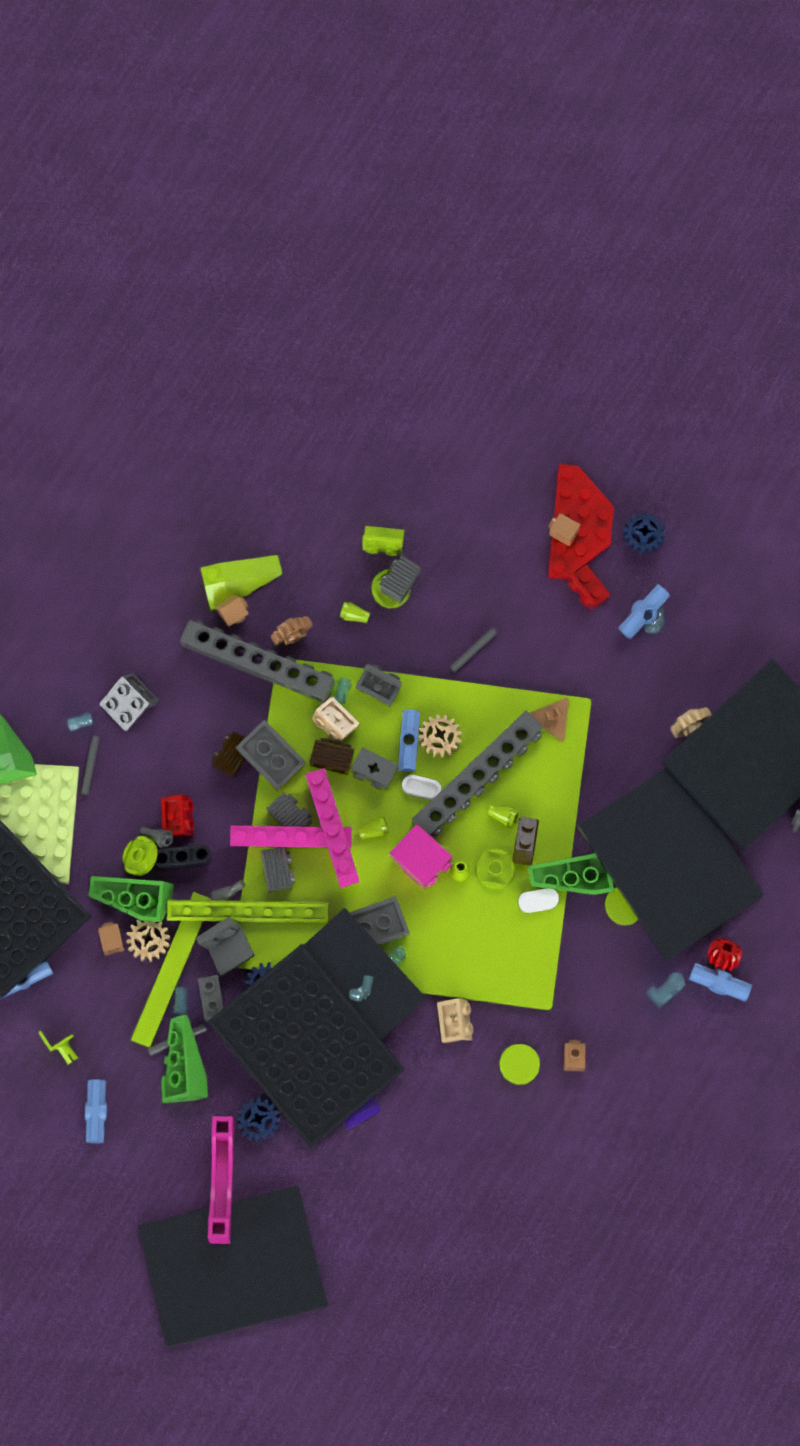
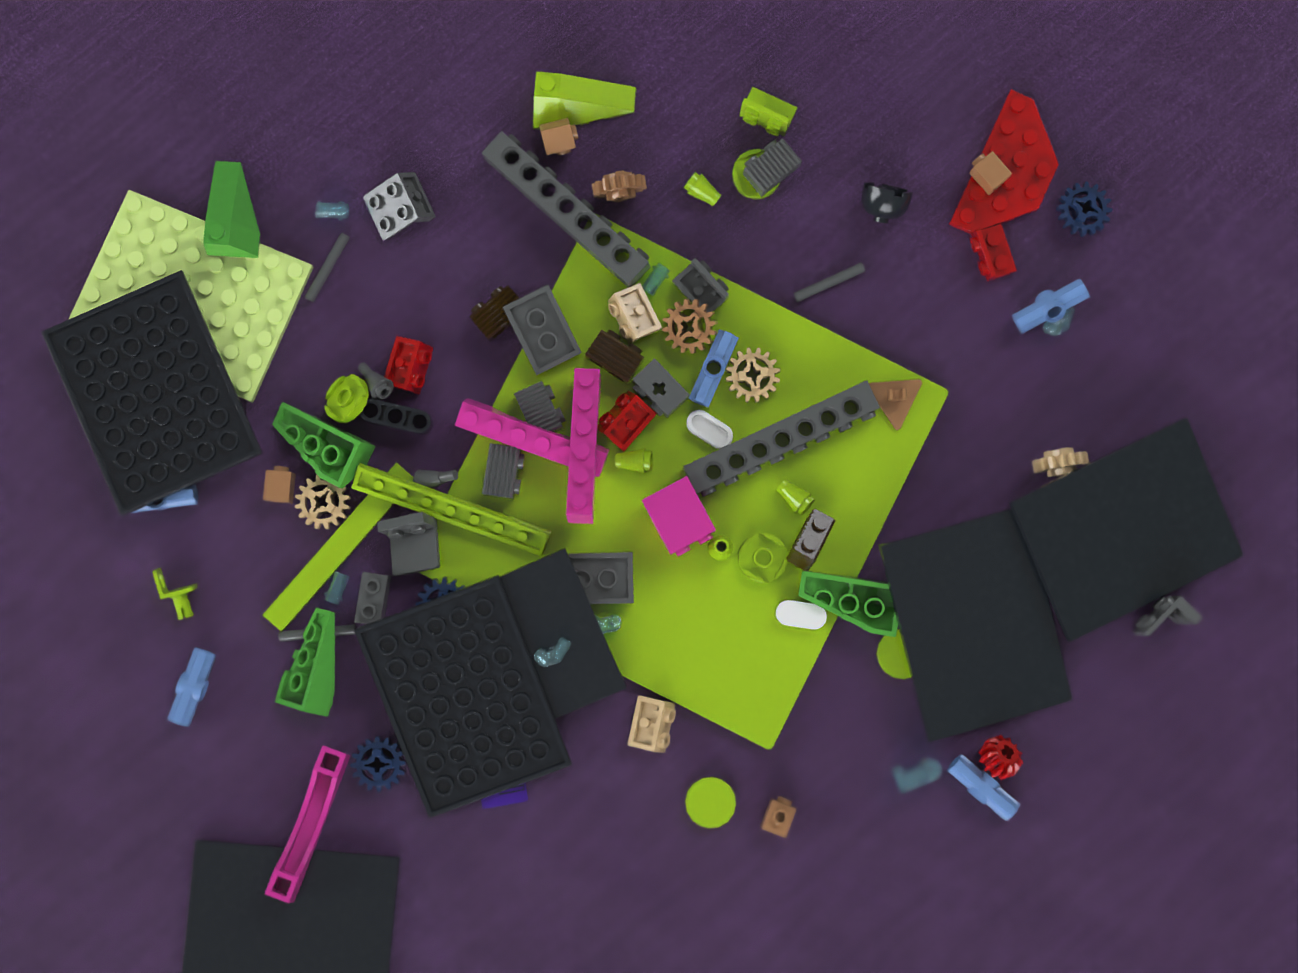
camera: 15 degrees right, 10 degrees up
(356, 800) = (625, 420): none -> red bracket
(377, 724) = (681, 319): none -> medium nougat gear
(494, 576) = (885, 201): none -> black cylinder

